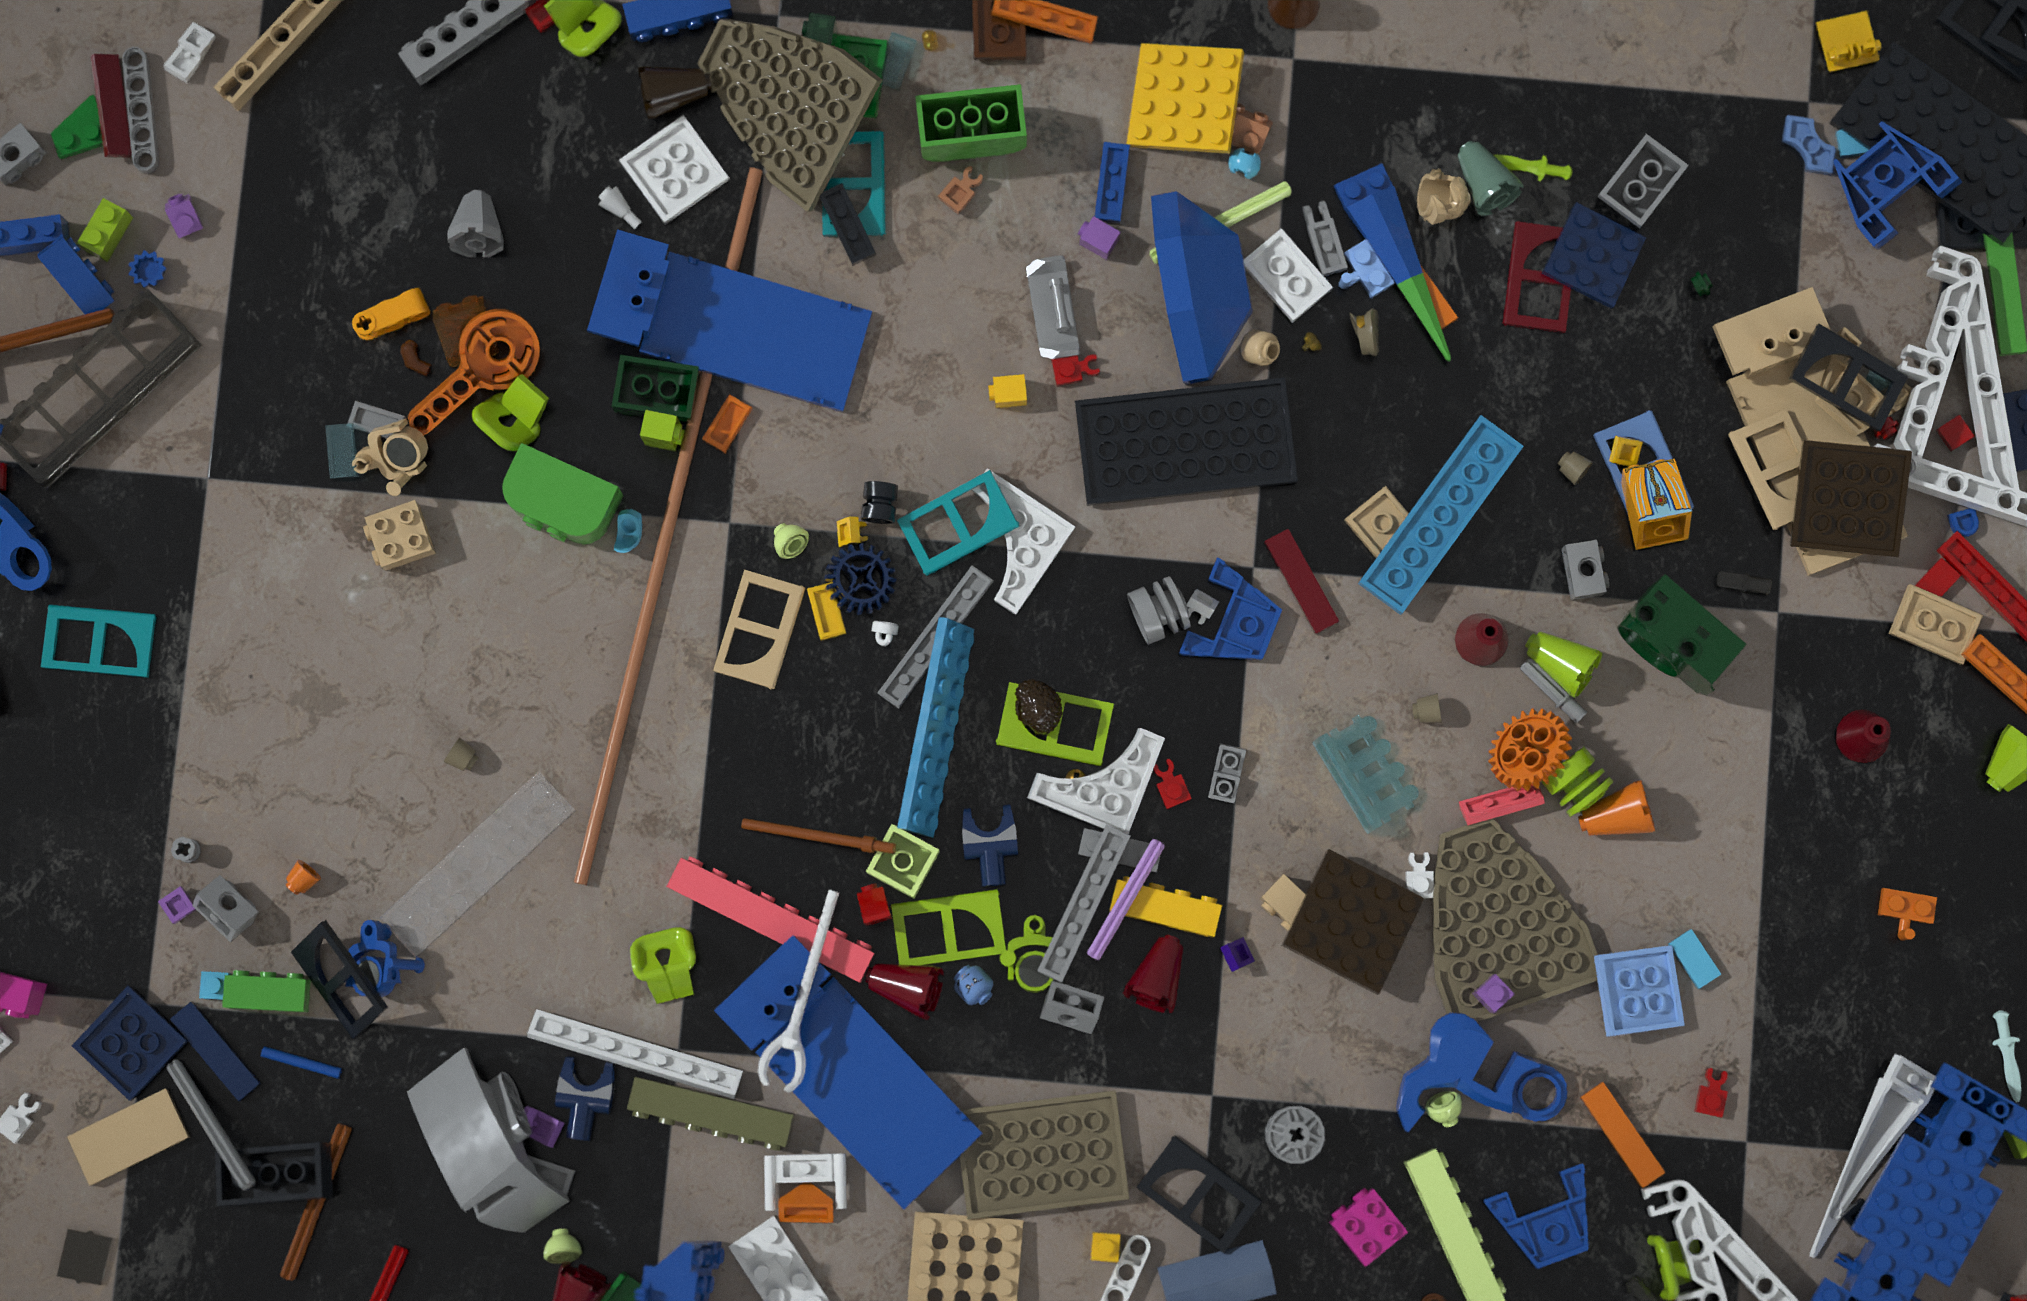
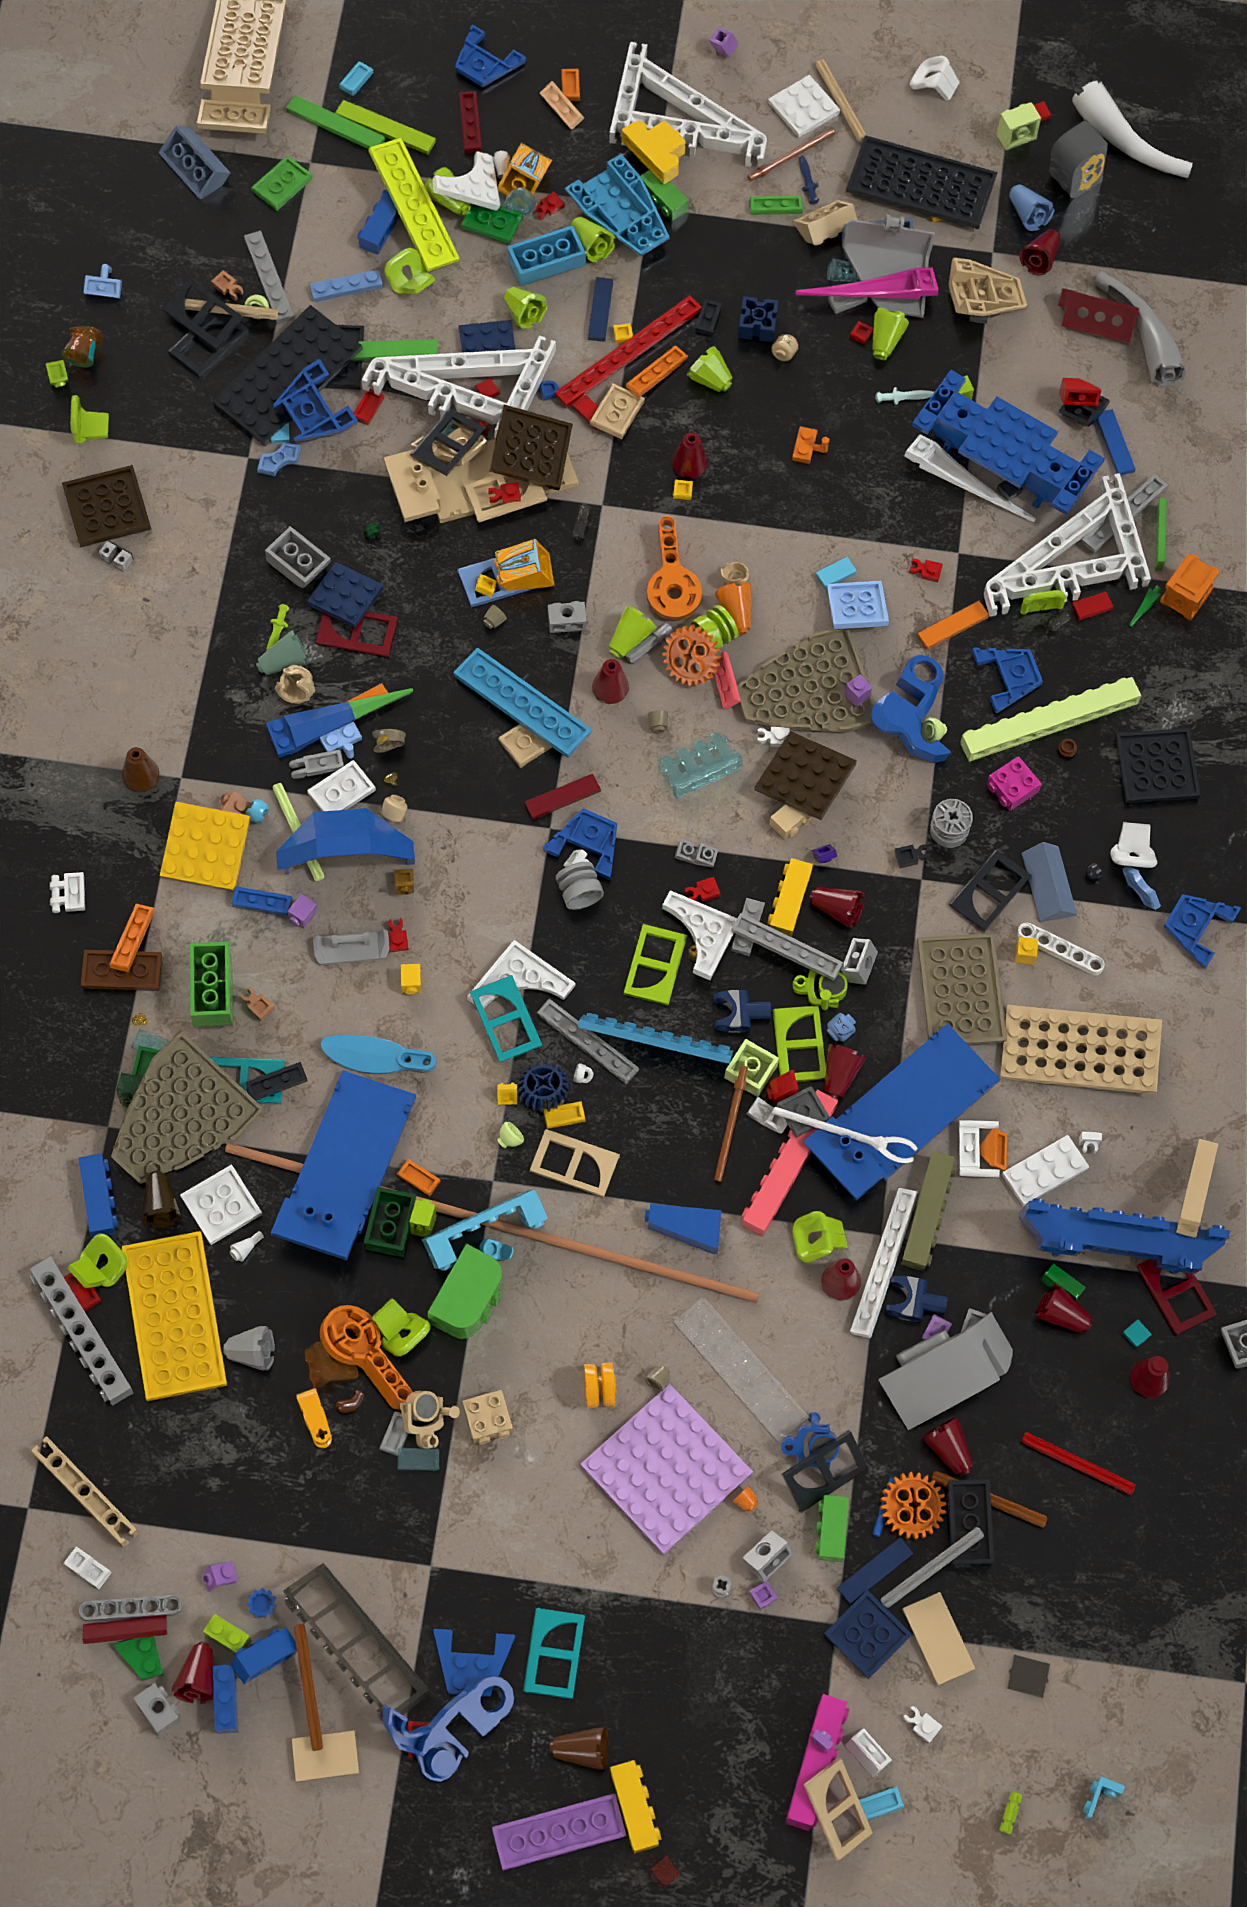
camera: 90 degrees left, 15 degrees down
(53, 195) = (196, 1676): none -> dark red cone
(70, 536) = (465, 1670): none -> blue wing
(212, 985) = (825, 1570): medium azure plate -> none
(303, 1122) = (931, 1505): none -> orange gear
(342, 773) = (666, 1469): none -> lavender plate
(381, 1146) = (950, 1446): none -> dark red cone
(441, 676) = (600, 1385): none -> light orange wheel
(520, 124) = (174, 1316): none -> yellow plate
(561, 1247) = (1024, 1320): yellowish green brick -> none
(620, 997) = (841, 1280): none -> dark red cone
(629, 454) = (526, 1204): none -> medium azure plate
(674, 786) = (686, 1224): none -> blue slope
(845, 882) = (763, 1114): none -> white slope
(845, 935) = (806, 1104): none -> dark grey tile
(879, 502) = (487, 1071): black wheel -> none
(898, 351) = (375, 1055): none -> dark azure plant
(1038, 706) = (645, 968): dark brown hair -> none
(1125, 899) = (785, 918): lavender axle -> none
(1153, 371) = (404, 881): none -> pearl gold bracket
(1185, 441) = (457, 864): black plate -> none
(1243, 1074) = (909, 856): none -> black plate
(1661, 717) = (672, 578): none -> orange beam
(1671, 636) = (620, 559): dark green piece -> none
(1674, 809) = (734, 573): none -> tan hair
(1775, 472) = (508, 493): none -> red plate
(1813, 728) = (683, 489): none -> yellow tile
(1848, 41) = (209, 428): yellow hinge -> none
(1907, 263) = (368, 406): none -> red tile

